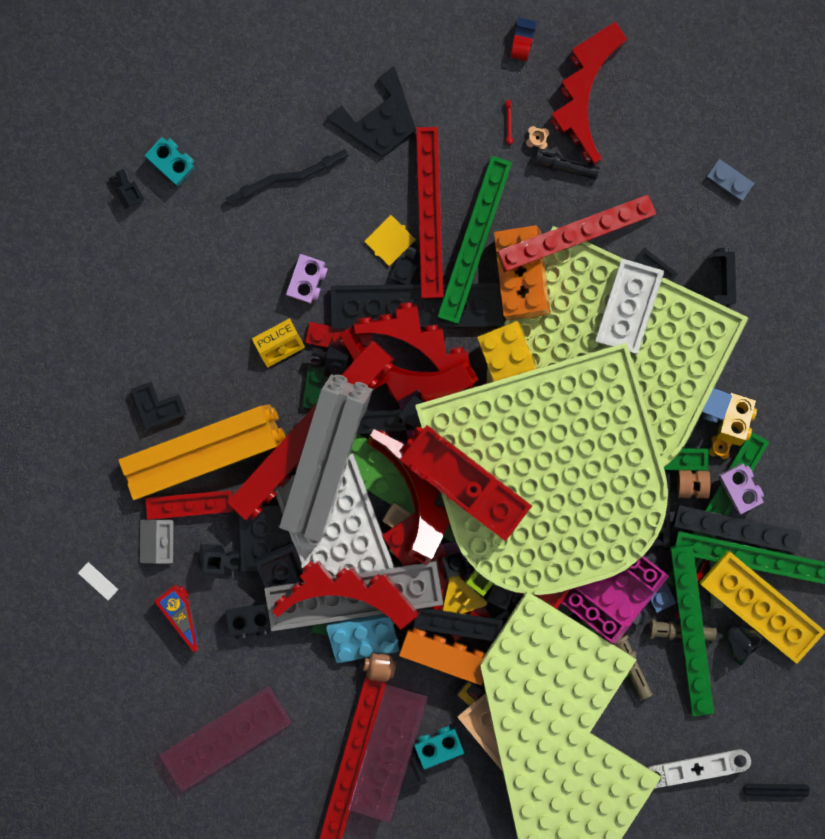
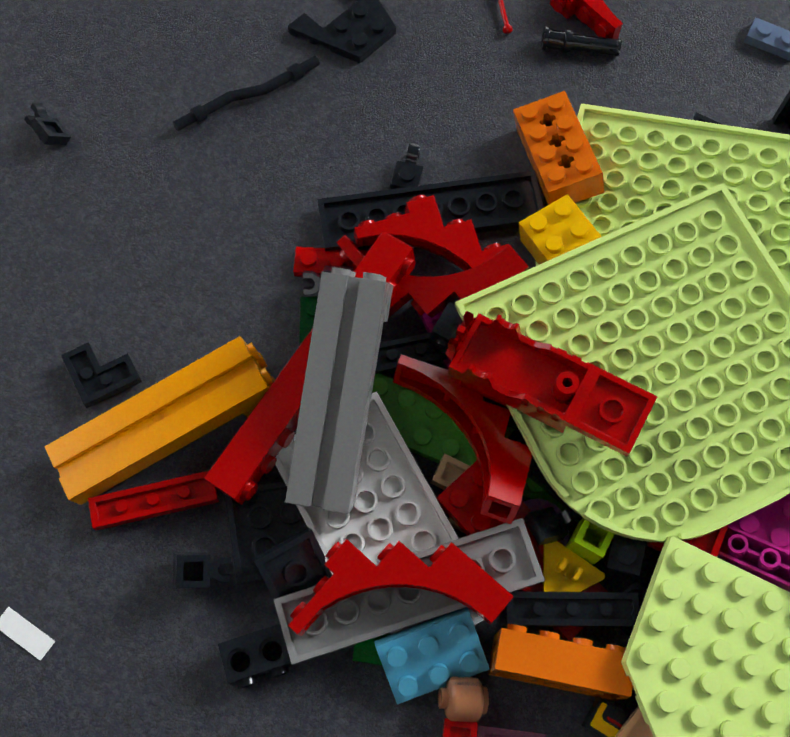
camera: 10 degrees left, 20 degrees down
(156, 541) = (109, 559): light grey panel -> none
(167, 164) = (100, 89): teal brick -> none
(179, 612) = (148, 660): slope -> none
(278, 343) = (259, 277): yellow panel -> none
(300, 277) = (280, 196): lavender brick -> none
(390, 240) = (383, 147): yellow piece -> none
(429, 213) = (429, 108): red plate -> none
(474, 240) = (489, 130): green plate -> none
(542, 133) = (538, 19): light nougat plate -> none
(575, 233) = (610, 97): red plate -> none
(630, 305) = (705, 152): white plate -> none

